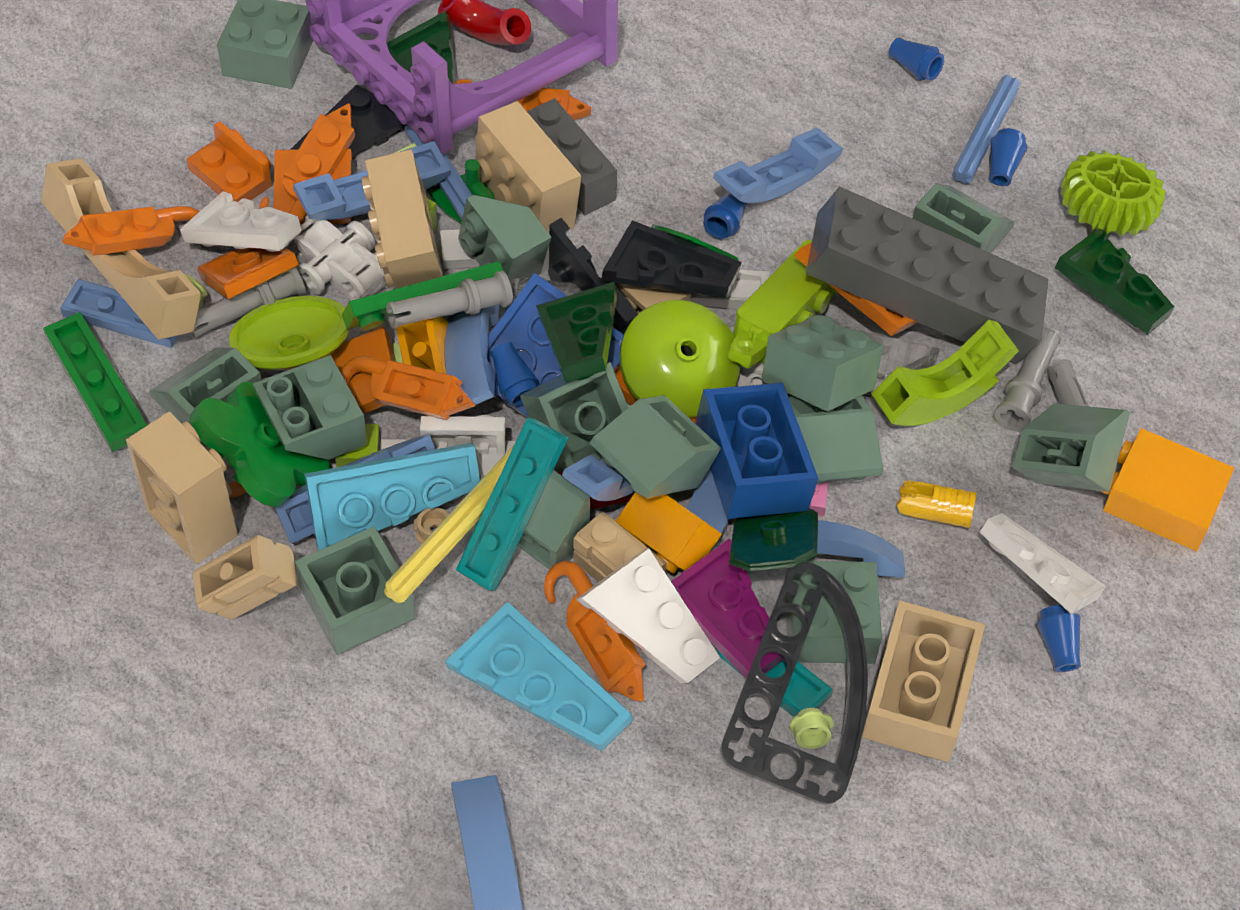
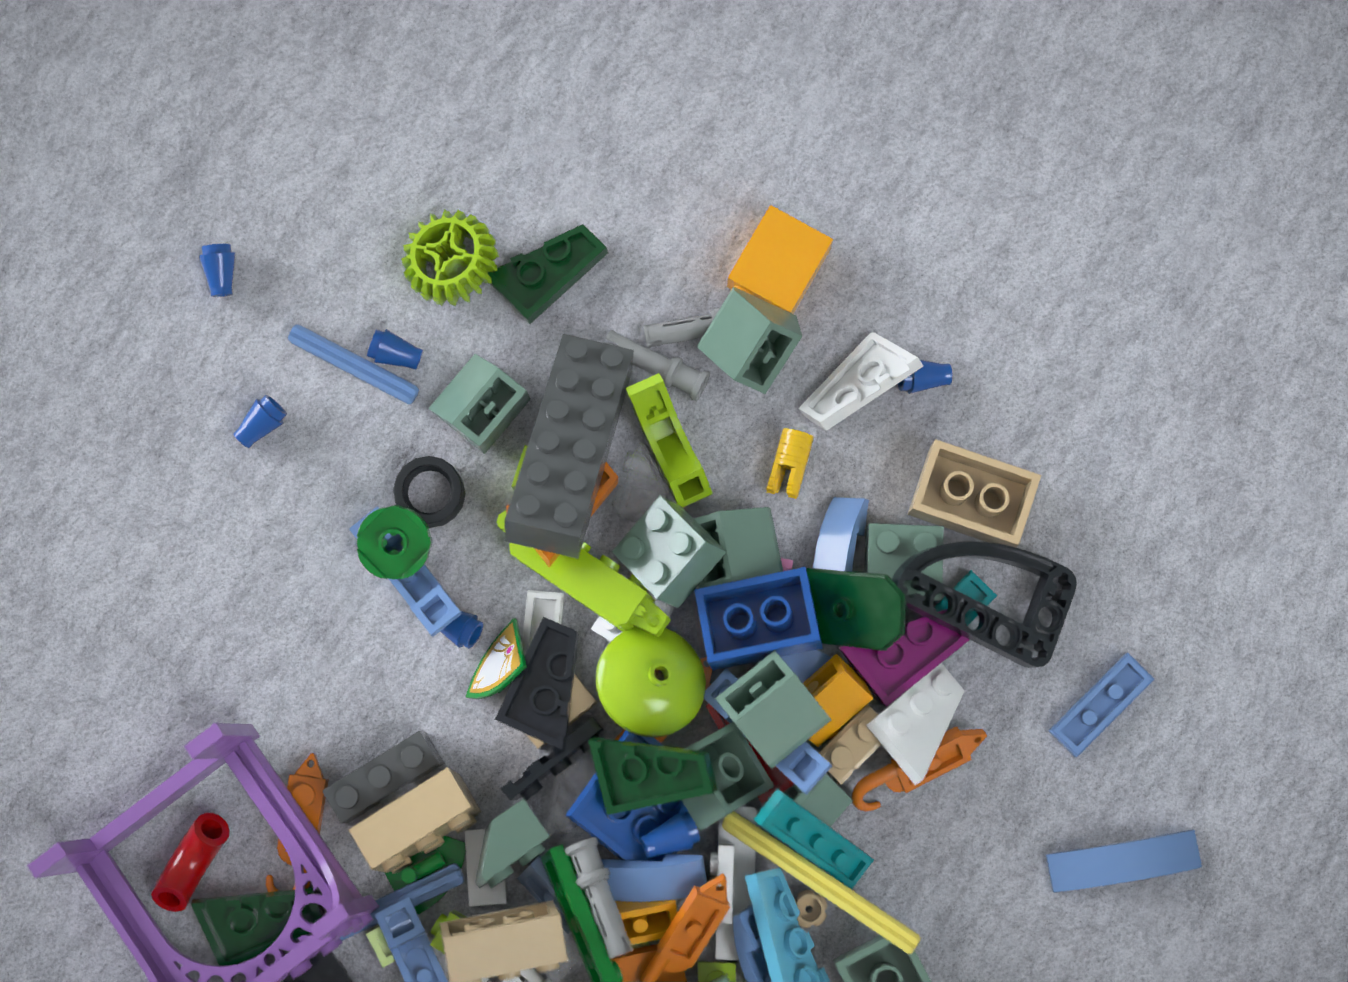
camera: 80 degrees left, 25 degrees up
(534, 674) = (953, 825): medium azure wing -> none
(680, 838) = (1101, 705): none -> medium blue tile
(810, 165) = (392, 563): none -> green plate
(811, 728) = (1008, 590): yellowish green plate -> none
(870, 167) = (435, 464): none -> black tyre
(1065, 23) = (218, 268): none -> blue cone

